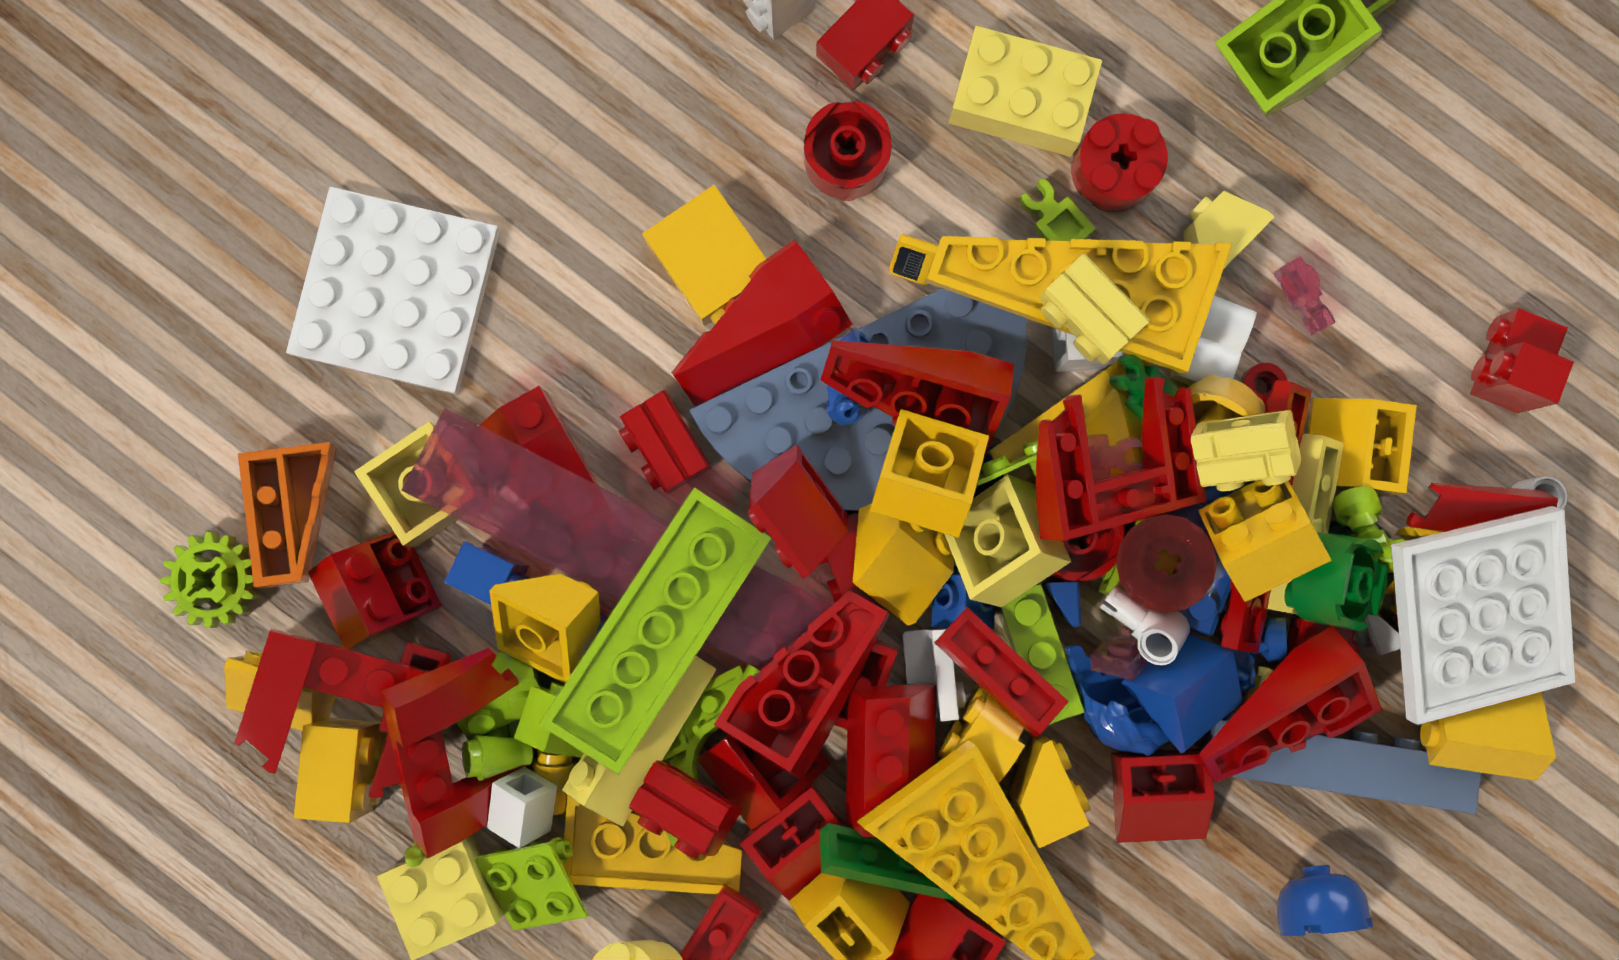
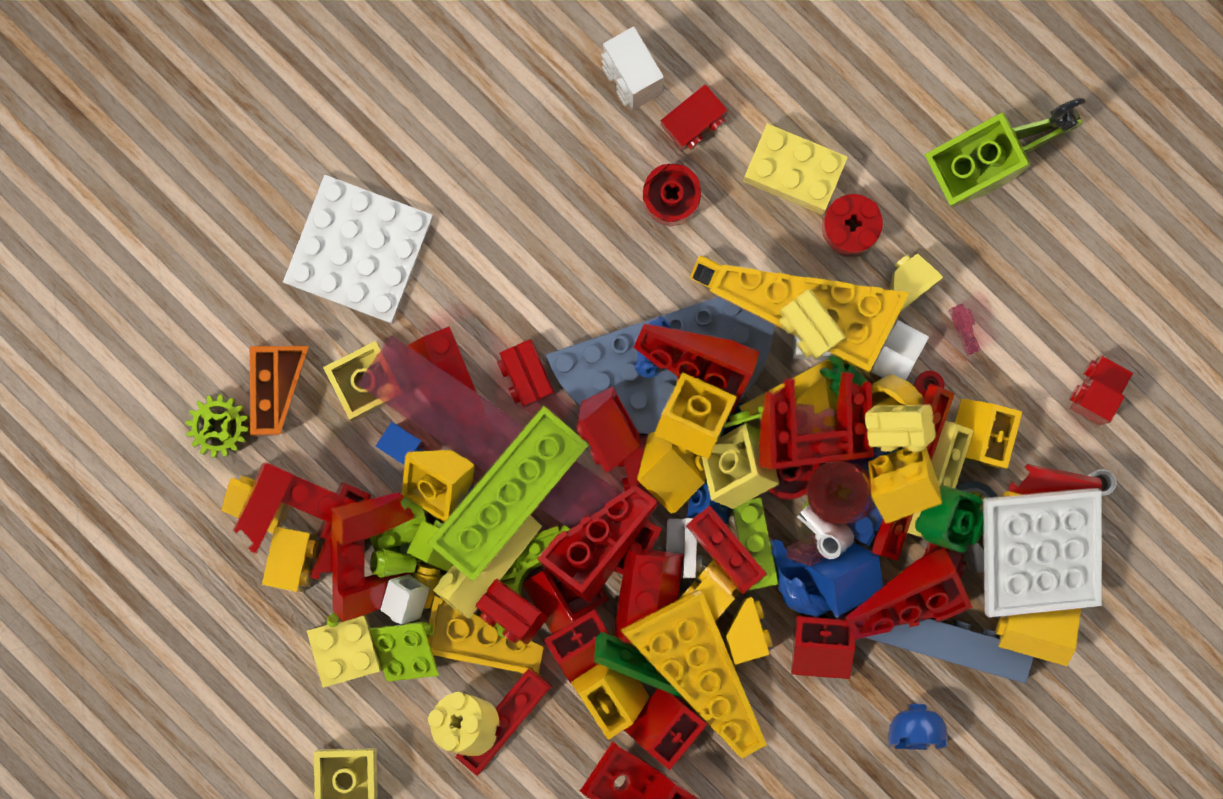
camera: 15 degrees right, 0 degrees up
(373, 589) = (323, 445): red slope -> none
(705, 253) = (571, 254): yellow brick -> none
(771, 322) = (604, 305): red wedge -> none
(1057, 221) = (808, 260): lime plate -> none
(1066, 600) = (777, 509): blue slope -> none
(1272, 647) = (909, 554): blue arm -> none
(1359, 510) = (975, 476): lime arm -> none

